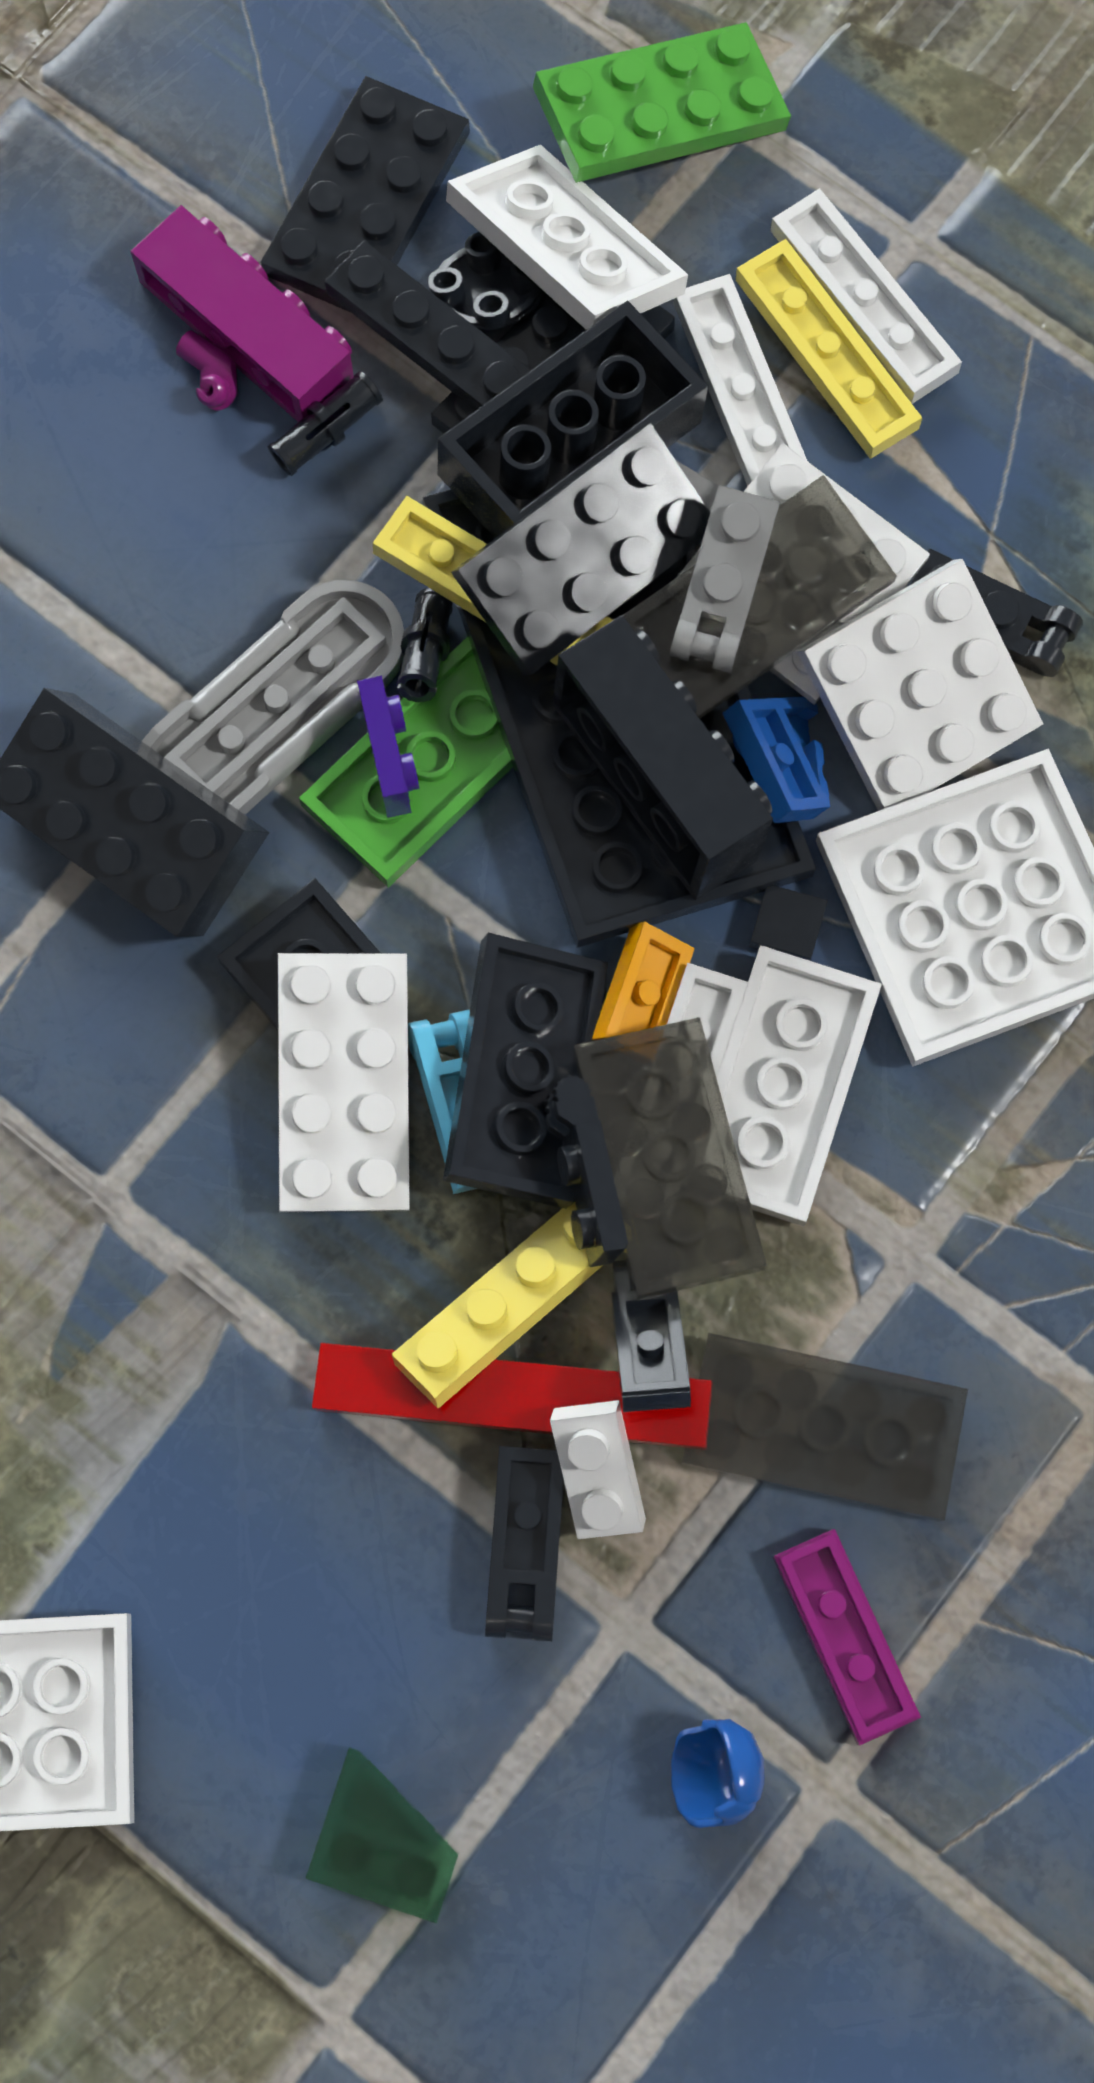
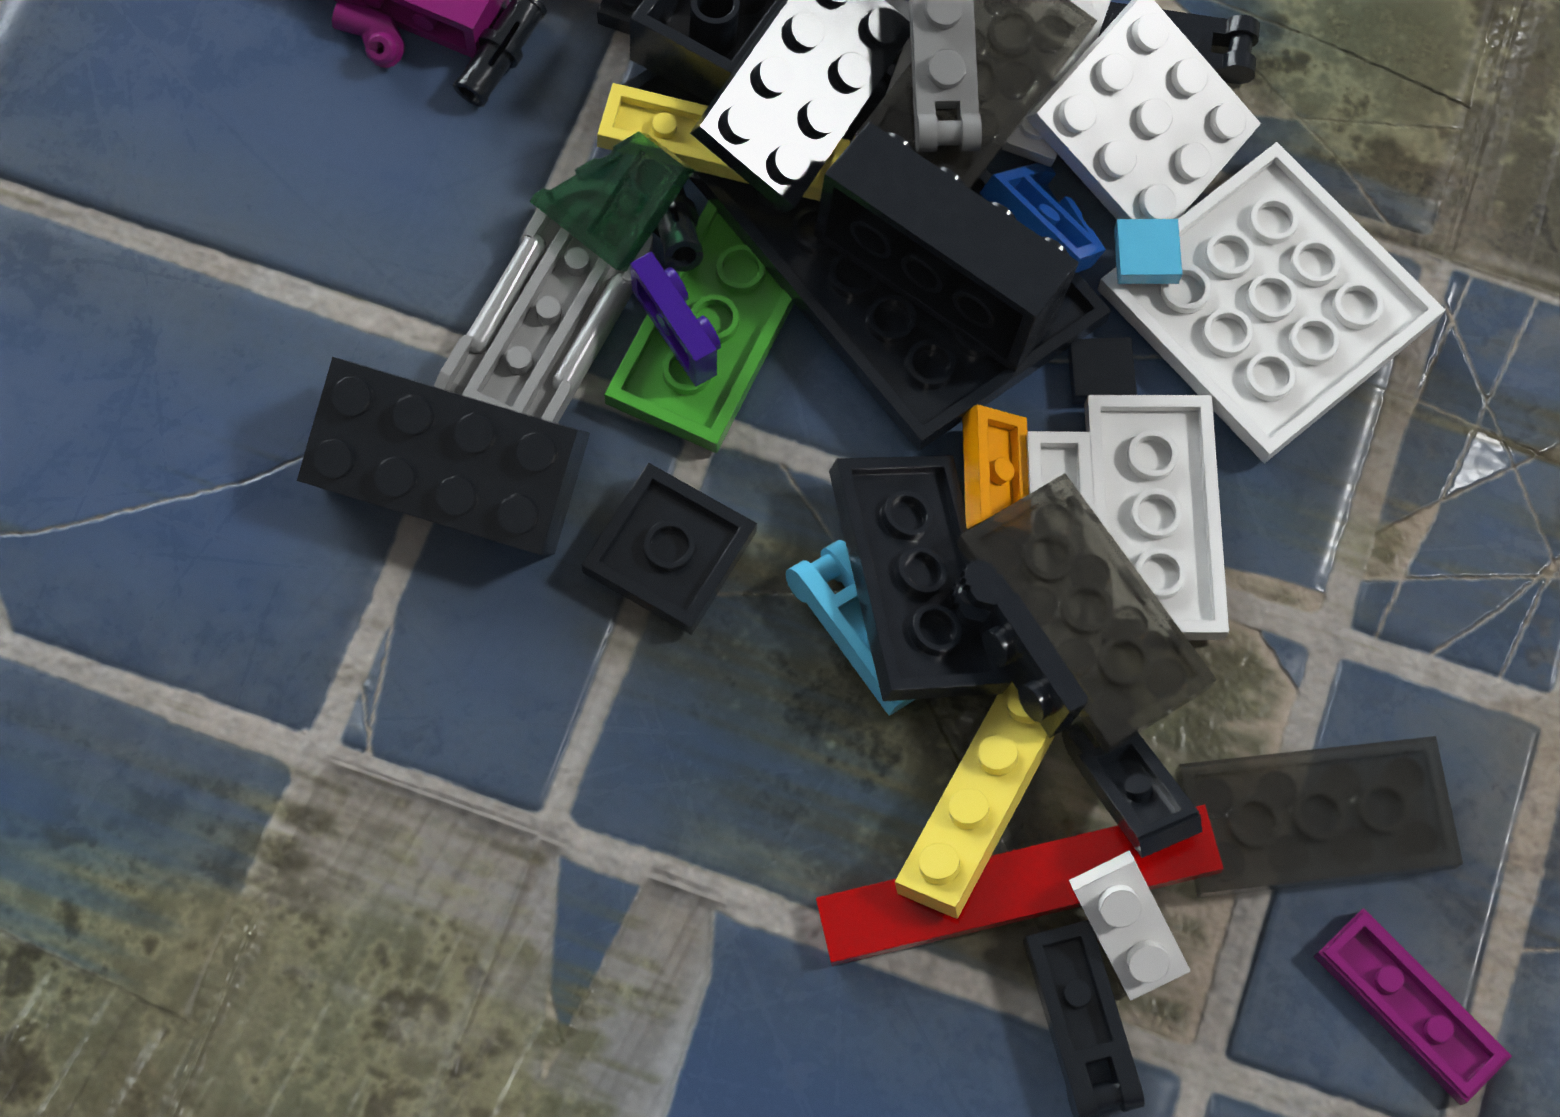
camera: 25 degrees left, 5 degrees down
(343, 1082) = (747, 644): white plate -> none
(372, 612) = (617, 198): none -> clear green wing
(871, 821) = (1147, 251): none -> medium azure tile

